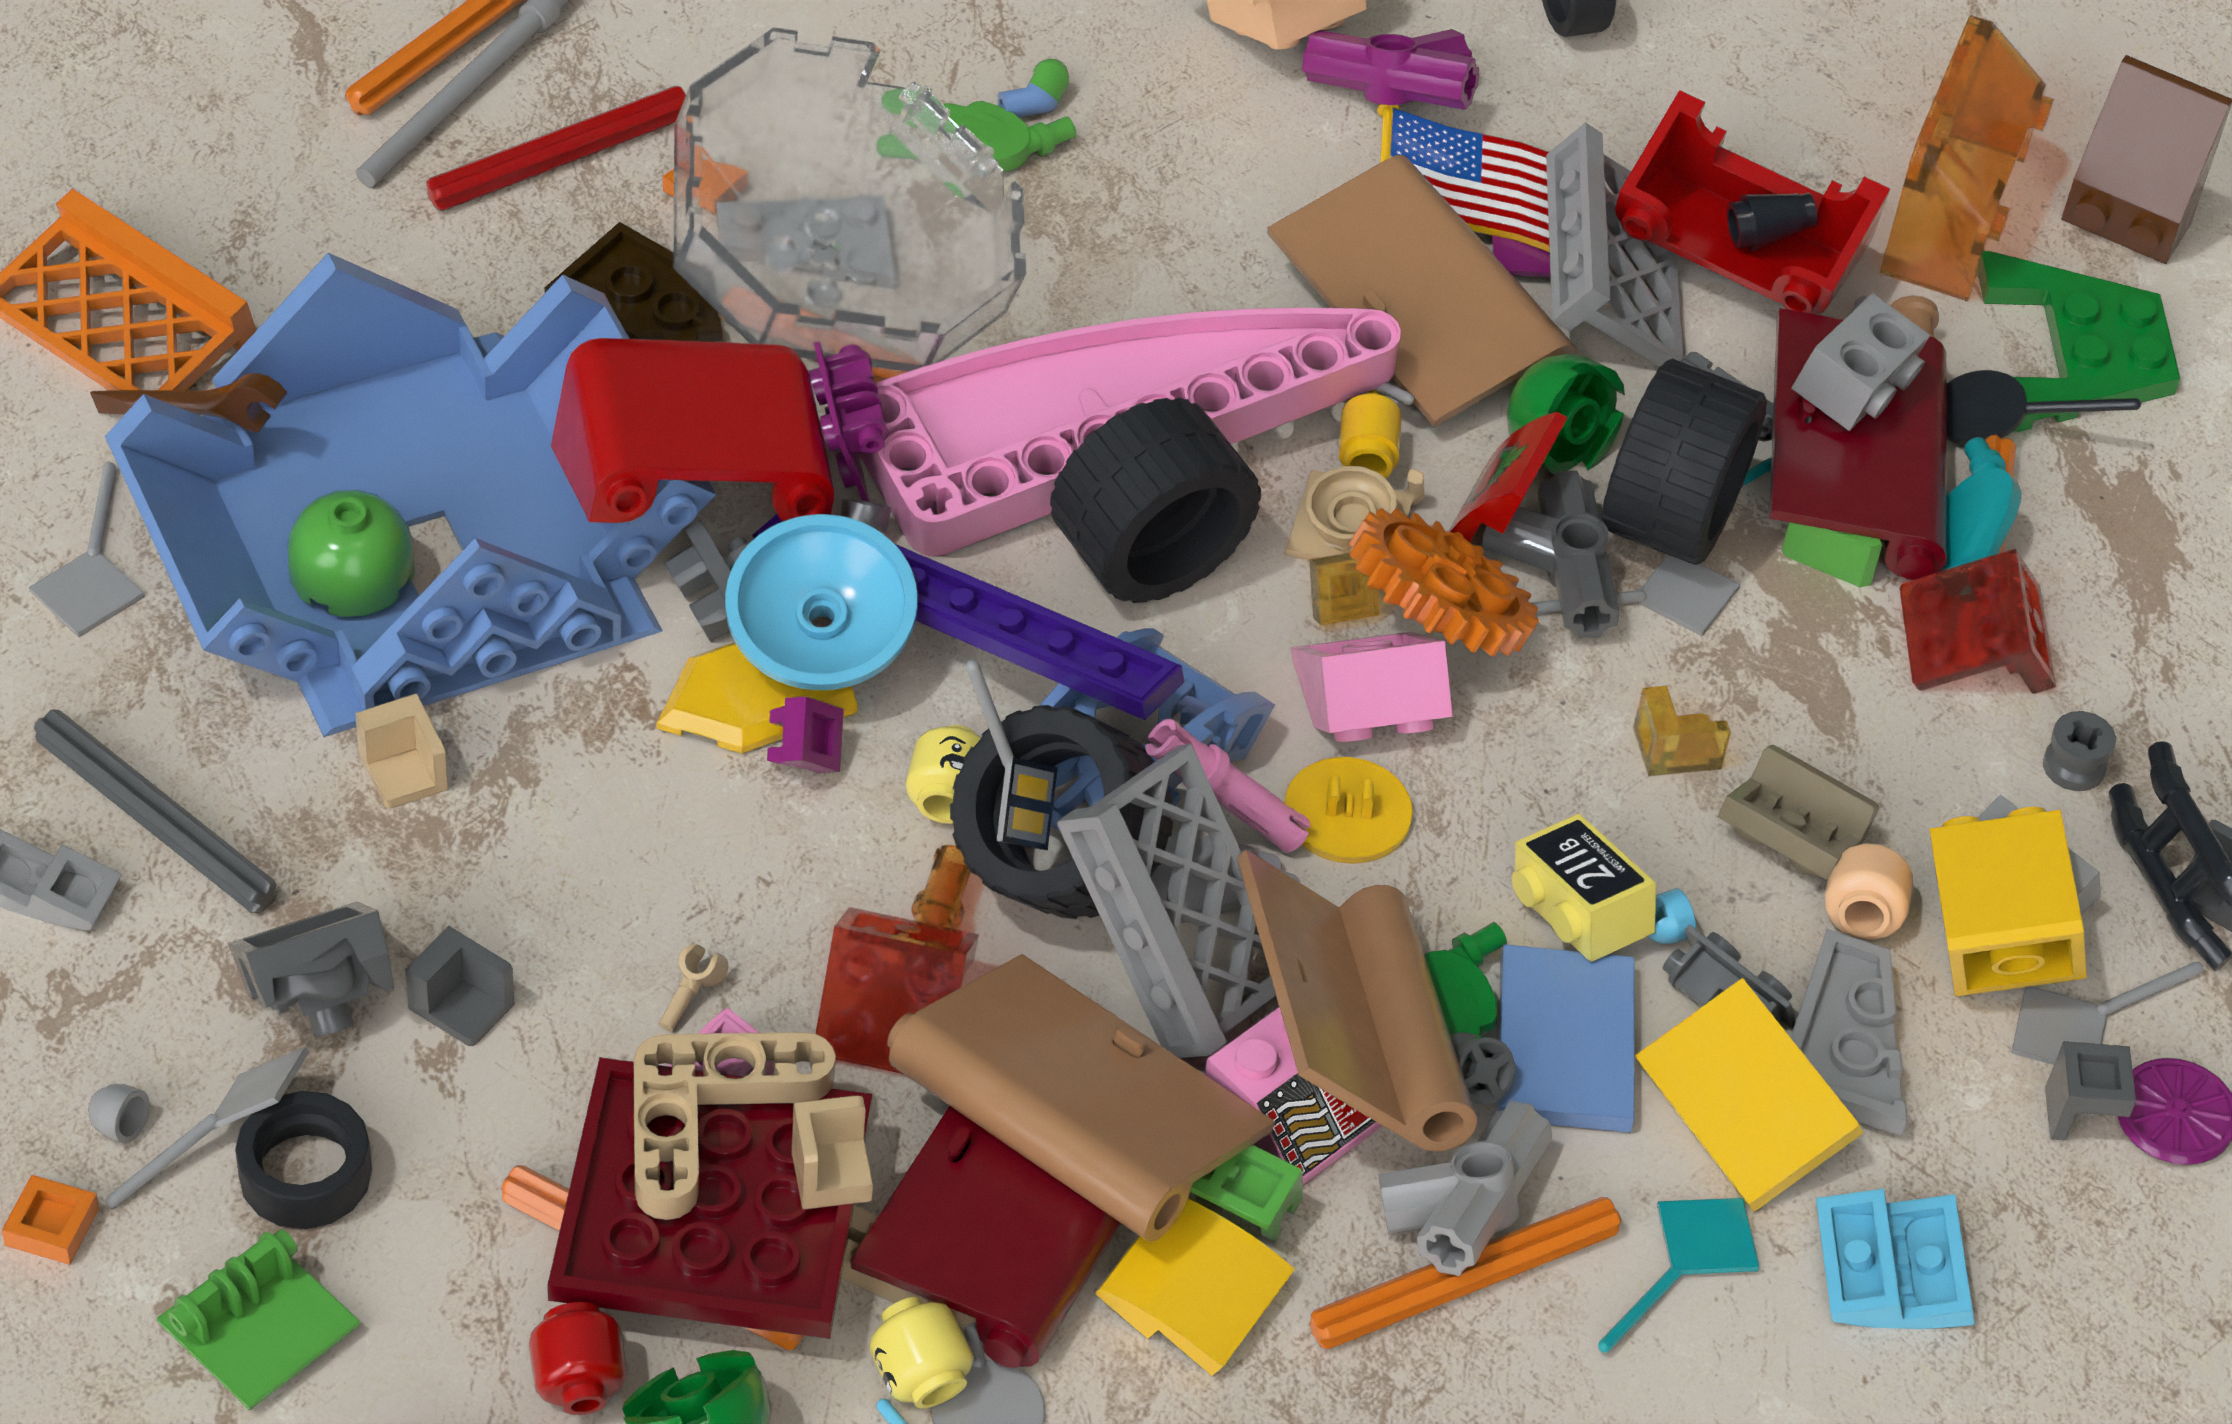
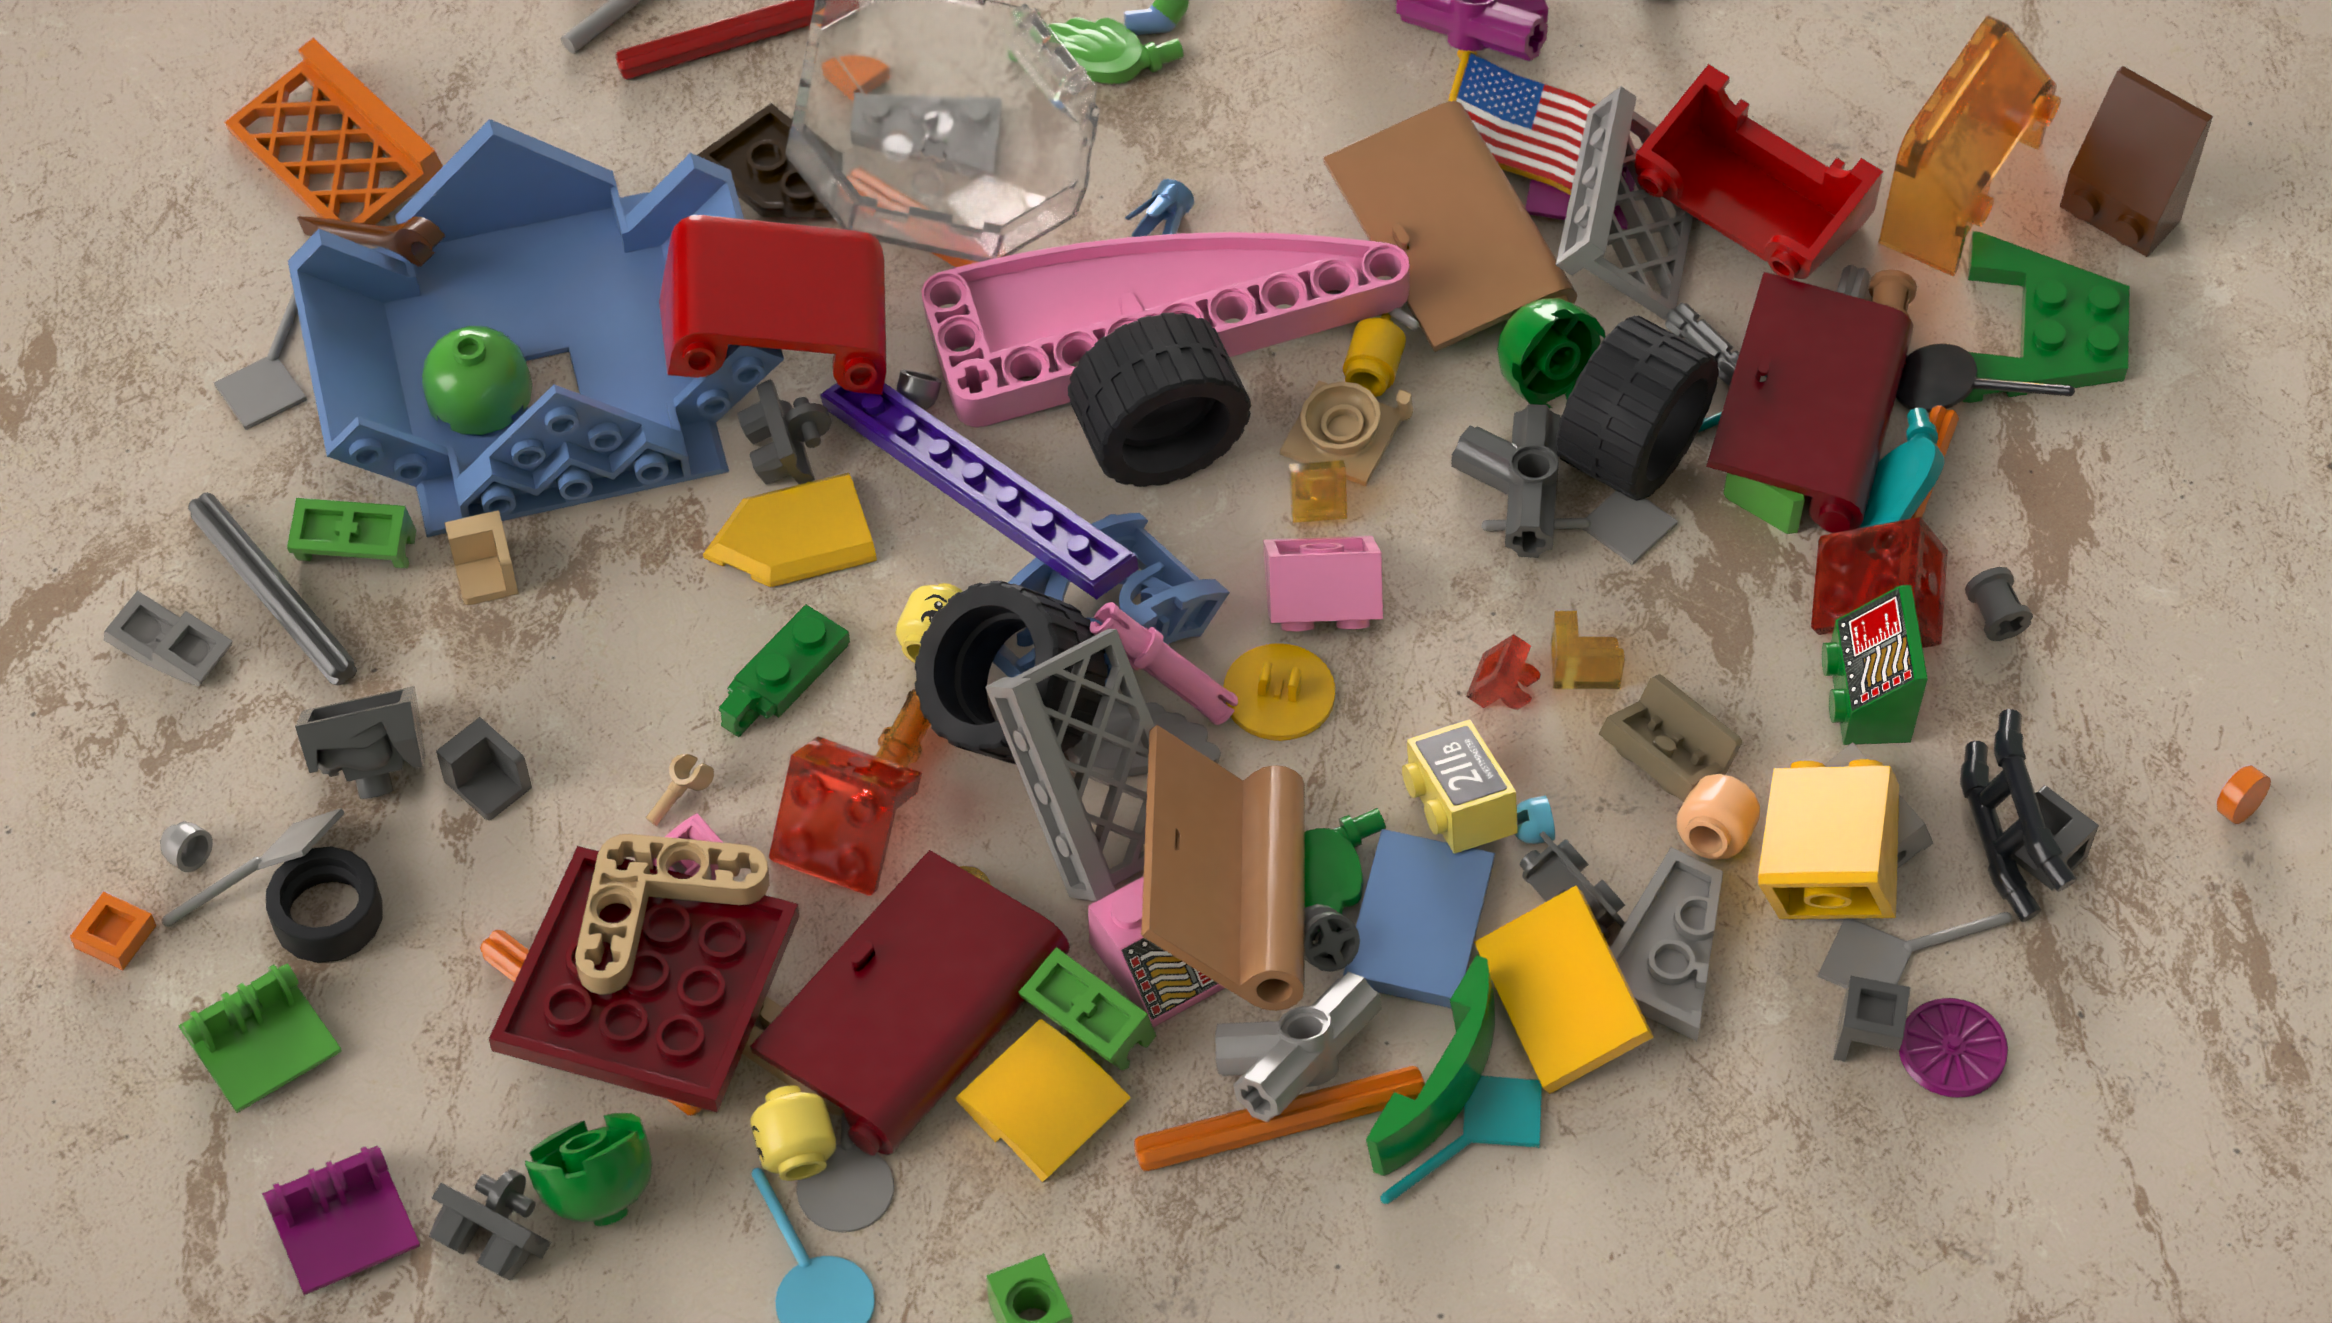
camera: 15 degrees right, 5 degrees up
(240, 733) = (351, 530): none -> bright green hinge
(577, 1357) = (507, 1102): red head -> none
(781, 841) = (783, 669): none -> green hinge
(809, 735) = (823, 579): magenta tile -> none
(821, 570) = (844, 436): medium azure dish -> none
(831, 1152) = (743, 953): tan panel -> none
(853, 410) = (915, 295): magenta hinge -> none
(1027, 784) = (982, 651): piece -> none
(1076, 1092) = (970, 921): medium nougat door -> none
(1099, 293) = (1168, 203): none -> flat silver piece
(1443, 582) = (1400, 497): orange gear -> none
(1508, 476) = (1479, 410): red slope -> none
(1595, 764) = (1500, 672): none -> clear red tile
(1621, 1257) = (1413, 1125): none -> green slope
(1768, 218) = (1776, 186): black cone -> none
(1862, 363) = (1818, 331): light grey brick -> none
(1894, 1261) = (1661, 1154): medium azure slope -> none
(2005, 715) = (1877, 670): none -> slope
(2079, 751) = (1935, 718): dark grey wheel -> none
(2108, 636) = (1998, 603): none -> dark grey bush

